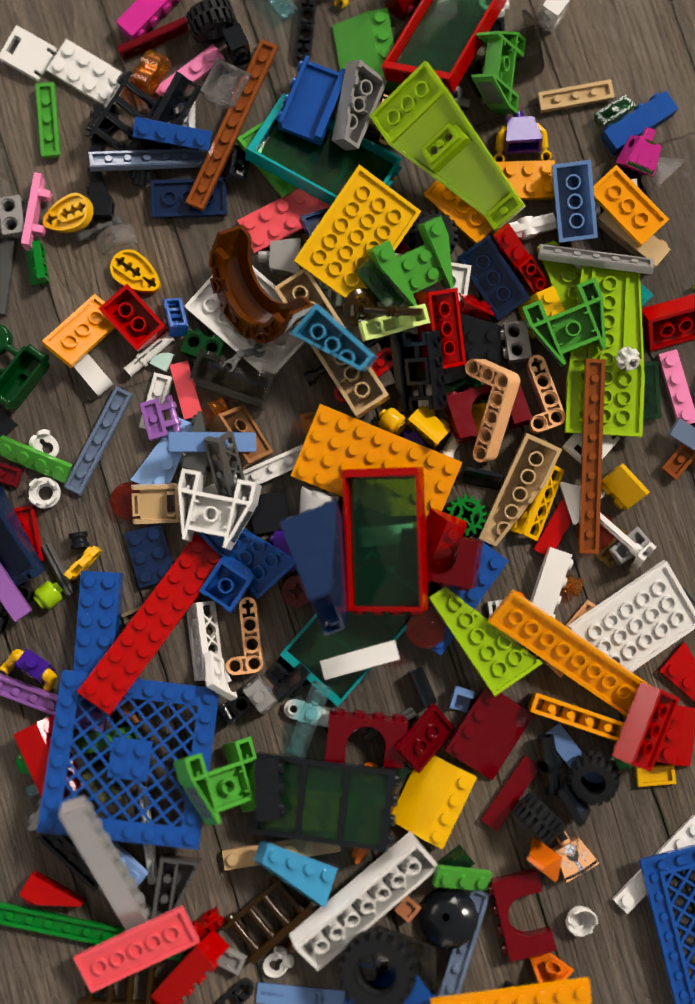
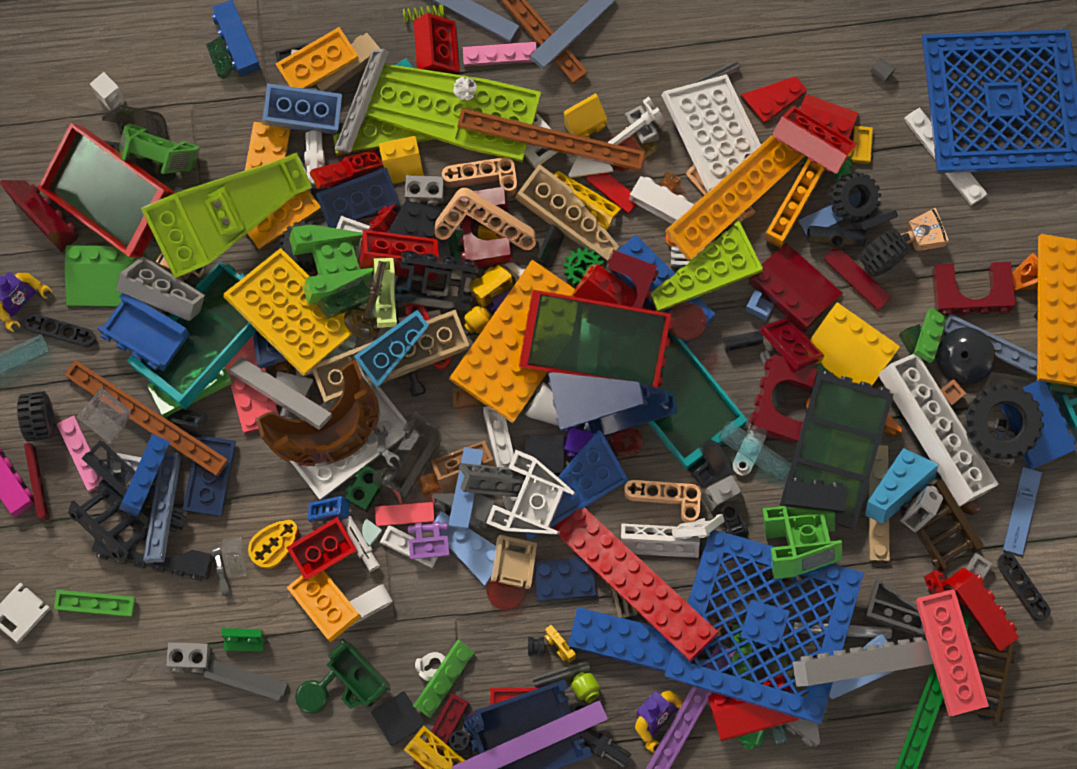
camera: 75 degrees left, 10 degrees down
(31, 226) = (172, 626): bright pink hinge -> none
(36, 485) = (480, 663): white piece -> none
(45, 891) = (884, 739): red slope -> none
(69, 854) = (852, 703): black fence -> none
(72, 222) = (210, 594): yellow piece -> none
(84, 72) = (55, 556): white plate -> none
(98, 440) = (438, 611): sand blue tile -> none
(150, 71) = (69, 488): clear orange brick -> none
(228, 583) = (608, 503): blue slope -> none
(237, 45) = (66, 397): black brick -> none
(276, 244) = (280, 393): none -> light grey tile
(276, 898) = (928, 501): none -> light grey torso
(279, 952) = (976, 522): white piece -> none
(359, 660) = (706, 388): white slope -> none
(522, 136) = (224, 146): torso -> none
(545, 859) = (925, 255): orange slope -> none
(571, 327) = (425, 133): bright green wedge -> none
(575, 96) = (195, 91): tan plate -> none
(581, 921) = (987, 235): white hair -> none
(641, 153) = (268, 40): dark pink torso -> none
(652, 400) = (503, 76): clear green plate -> none
(665, 169) = (287, 25): clear slope -> none

